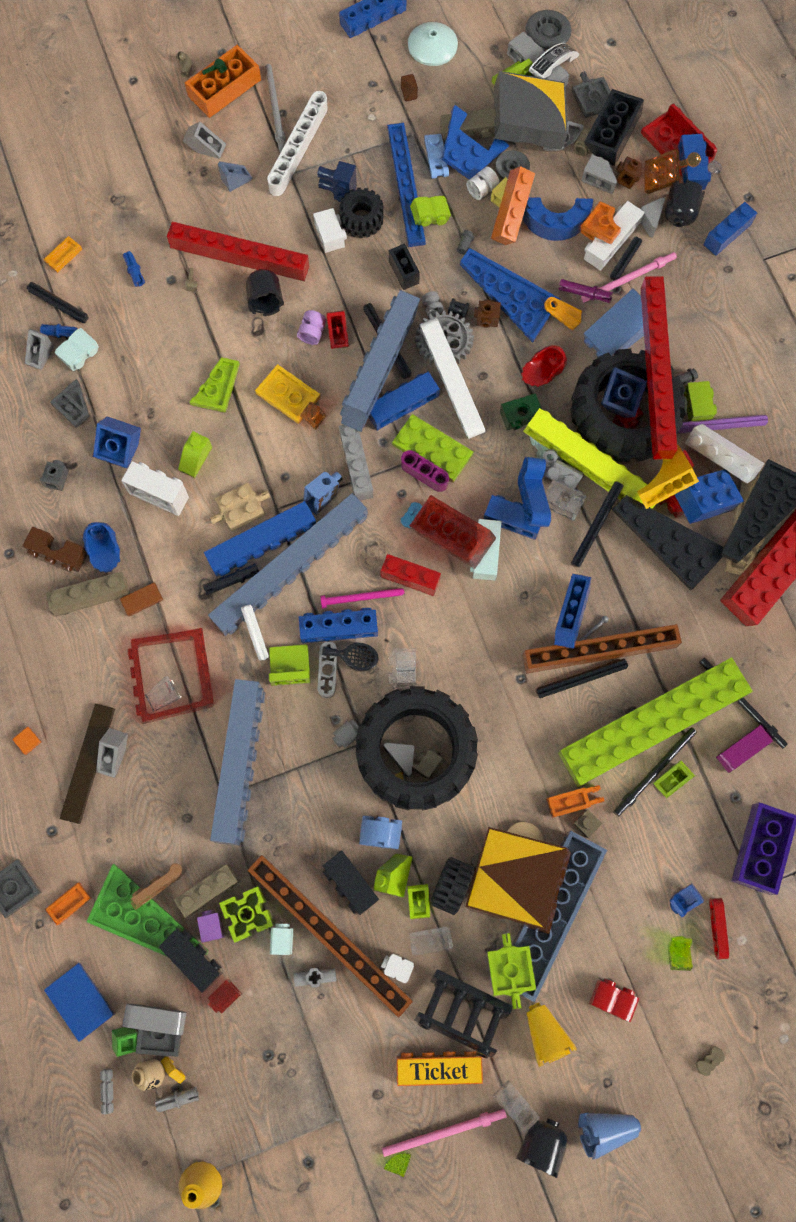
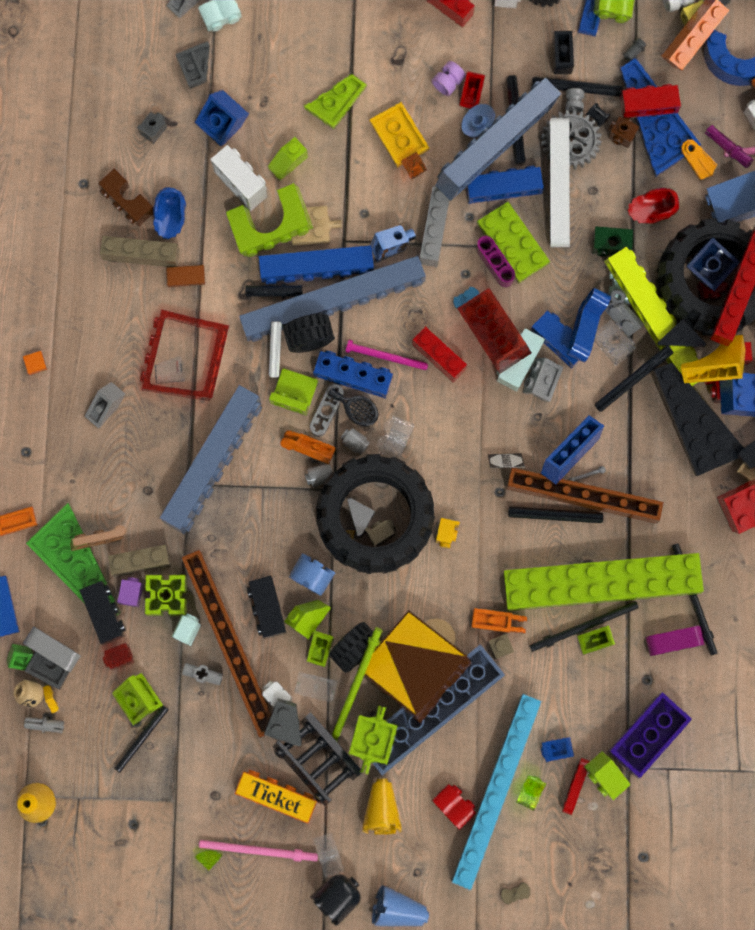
camera: 25 degrees right, 5 degrees up
(86, 765) = (79, 406): dark brown tile -> none
(225, 508) = (294, 223): none -> lime arch
(260, 1030) = (137, 698): none -> lime bracket
(264, 292) = (417, 25): black cylinder -> none
(280, 604) = (308, 333): none -> black tyre
(280, 1070) = (141, 738): none -> black bar
(324, 710) = (308, 446): none -> orange hinge
(353, 353) = (477, 120): none -> light blue dish
(366, 687) = (355, 441): none -> light grey brick
(417, 992) = (284, 723): none -> dark grey wing
(441, 288) = (588, 87): none -> black axle
(471, 873) = (373, 642): none -> lime bar
(490, 737) = (446, 532): none -> yellow brick
(500, 277) = (650, 101): none -> red brick
(514, 558) = (543, 379): none -> light grey bracket
(515, 646) = (506, 460): none -> sticker
(623, 468) = (682, 336): none -> black tile
(648, 971) = (496, 792): none -> medium azure brick
(744, 905) = (607, 776): none -> lime brick

